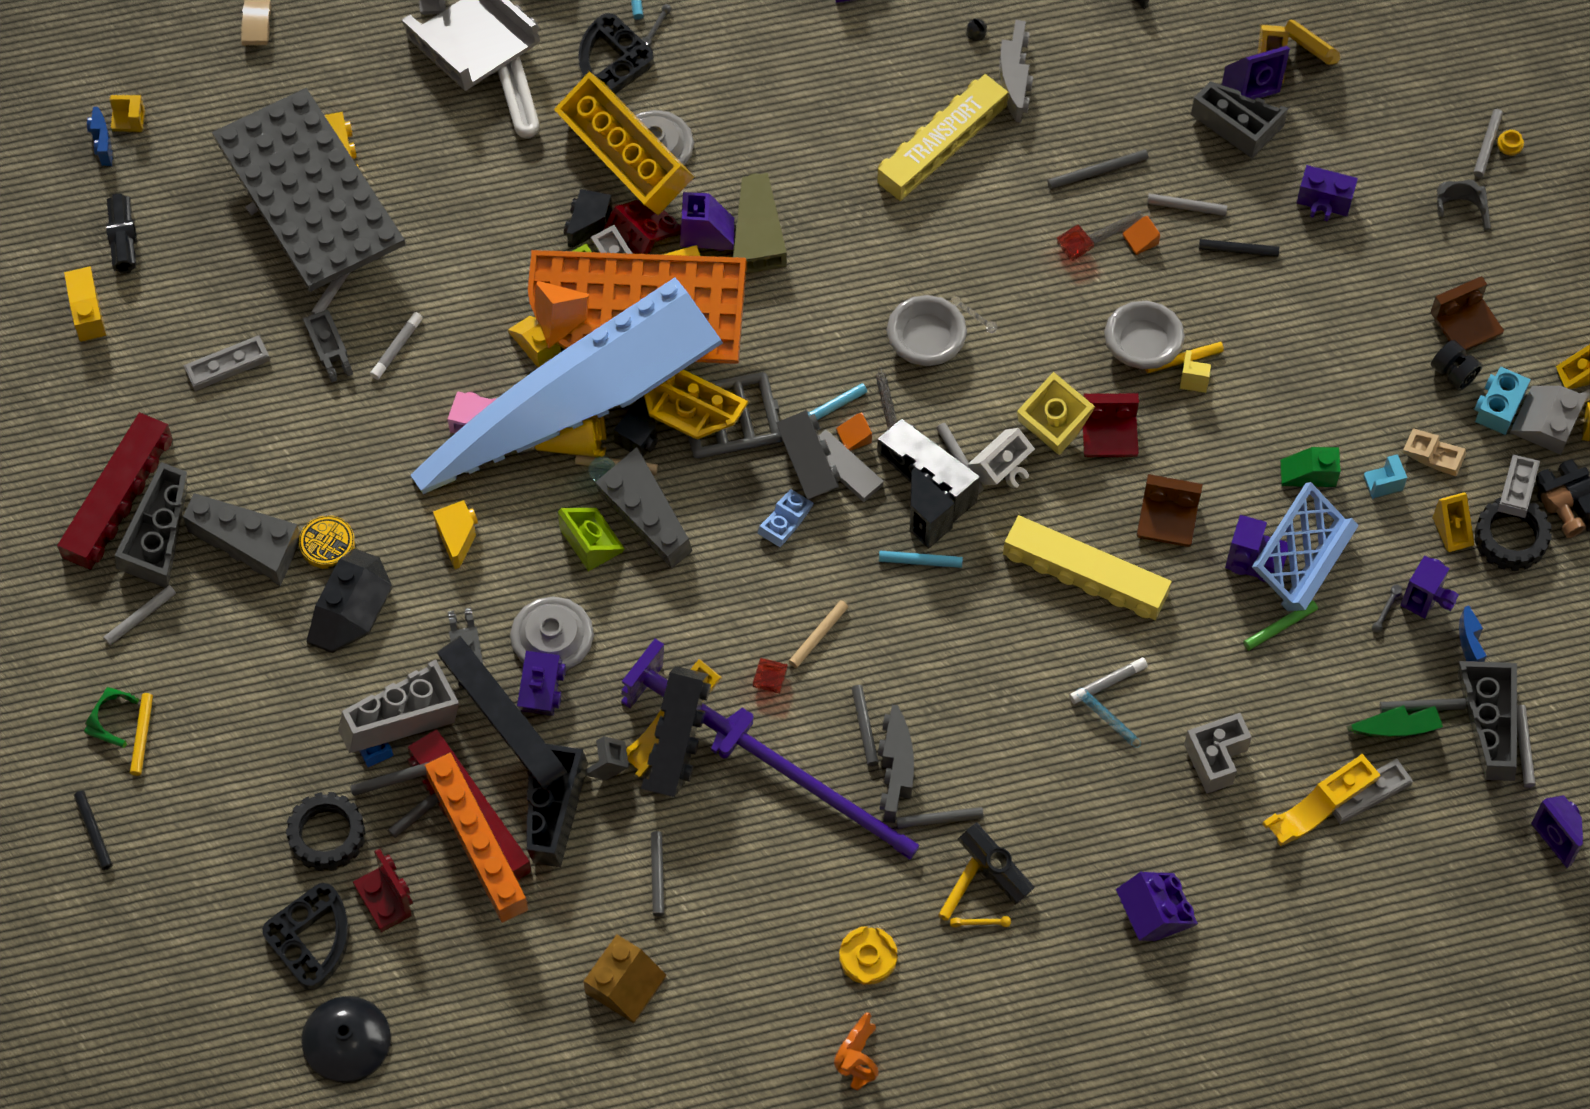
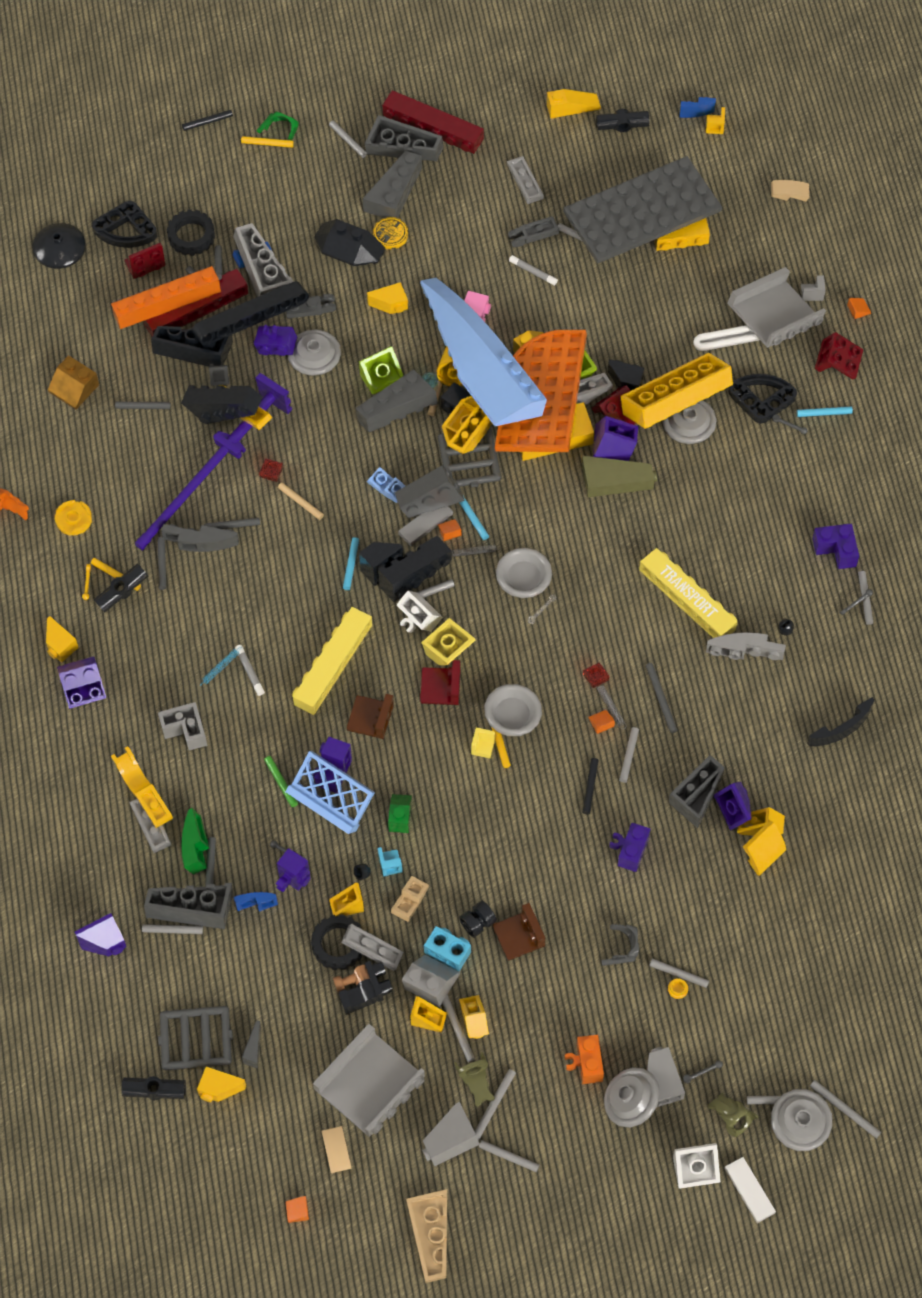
camera: 95 degrees right, 0 degrees up
(559, 310) = (536, 343): orange slope -> none
(1091, 946) = (59, 641): none -> yellow slope
(1410, 509) = (361, 871): none -> black hinge

